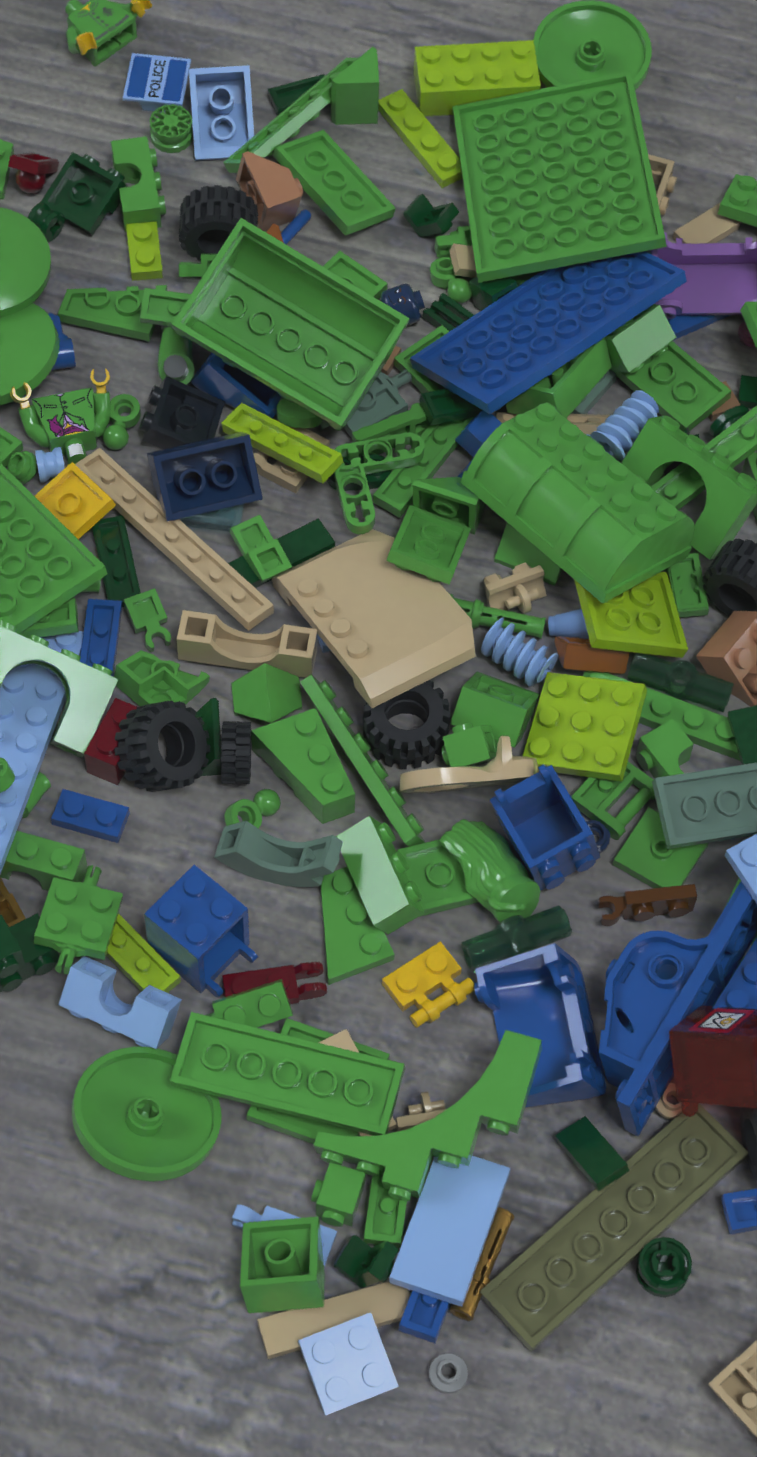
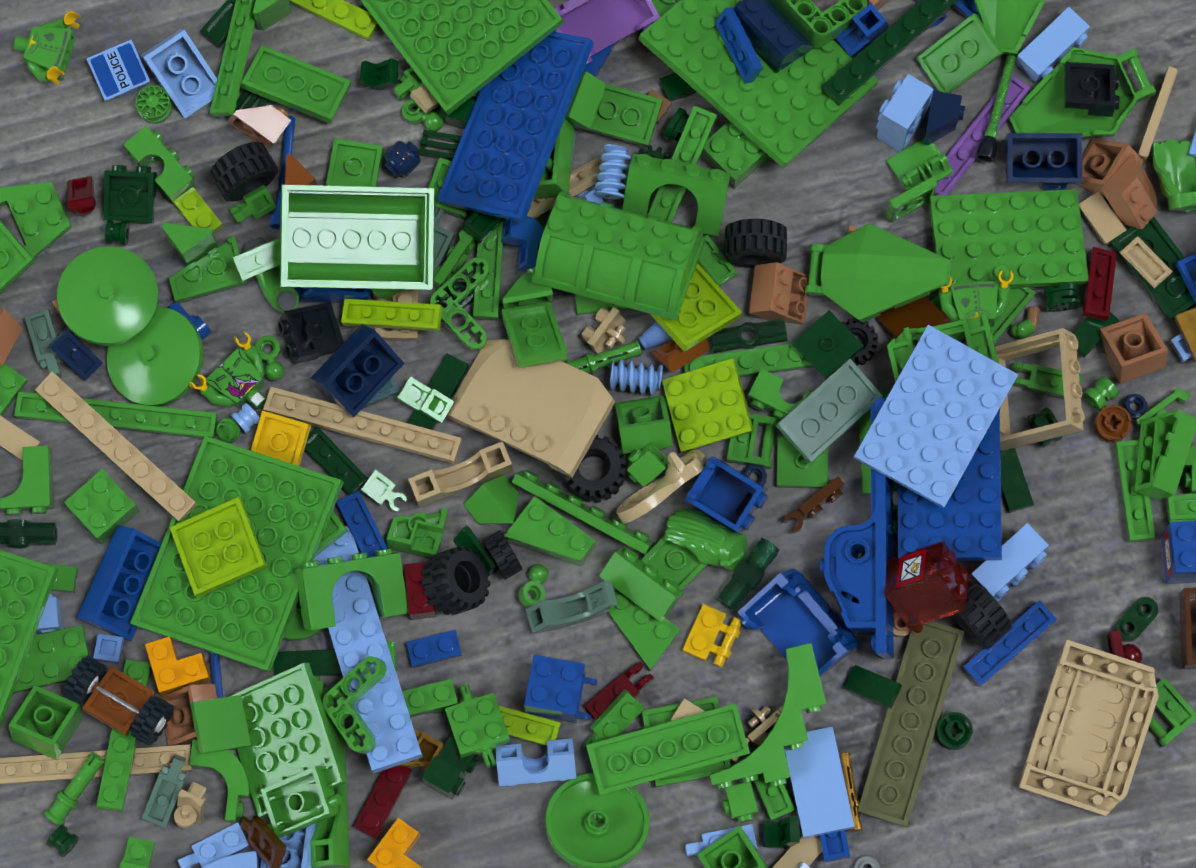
camera: 25 degrees left, 15 degrees up
(116, 260) = (190, 241): none -> bright green slope

